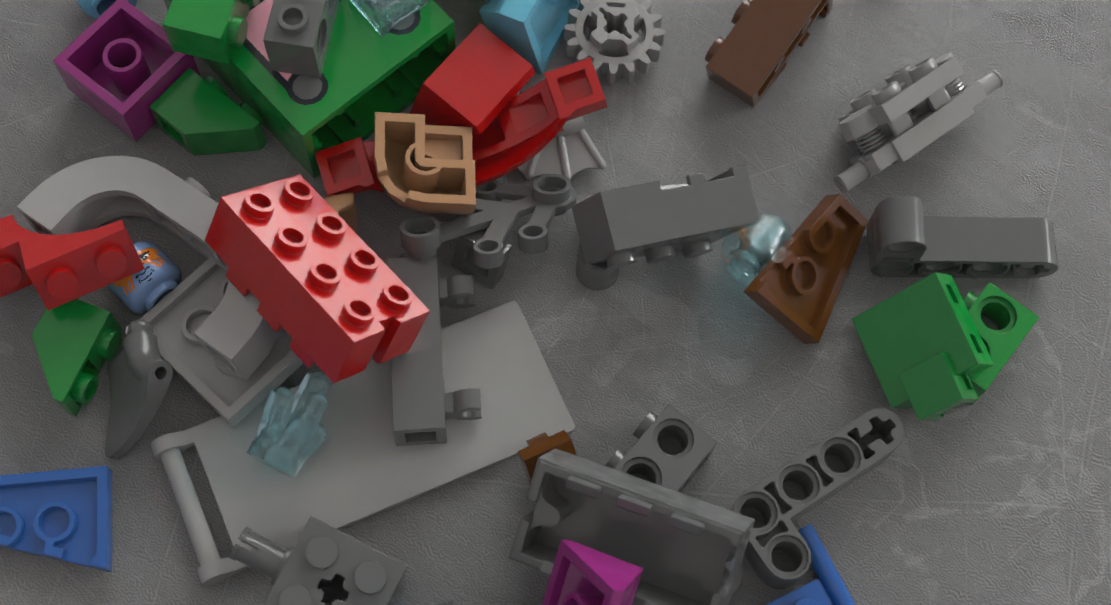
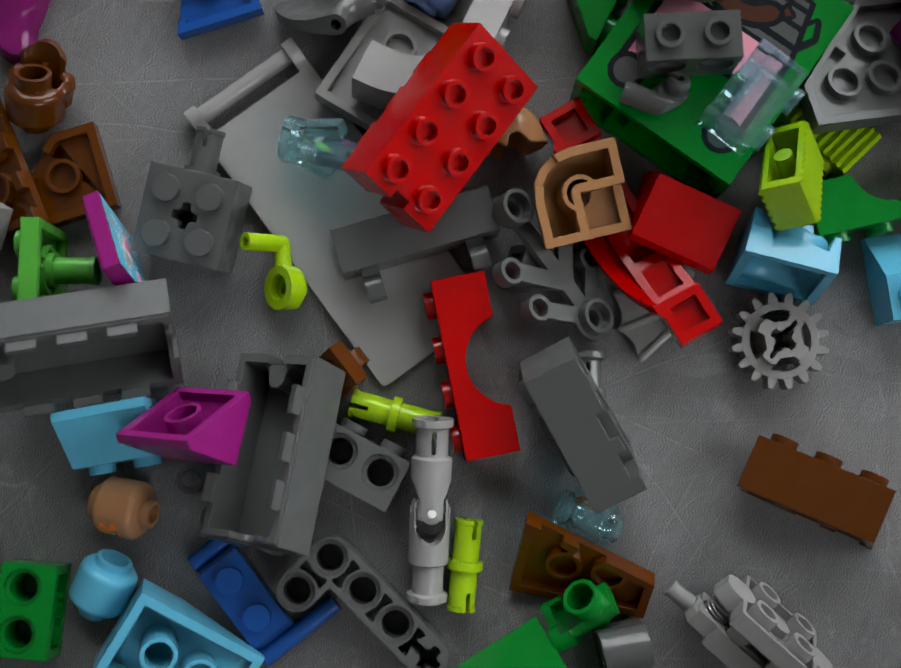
camera: 85 degrees right, 15 degrees up
(348, 60) = (659, 98): none -> dark grey arm
(427, 513) = (284, 283): none -> lime plate
(516, 326) = (483, 425): none -> red arch
(610, 416) = (386, 411): none -> lime pin
(702, 390) = (431, 478): none -> light grey piece
(785, 381) = (464, 565): none -> lime pin
(857, 282) = (578, 612): none -> green plate

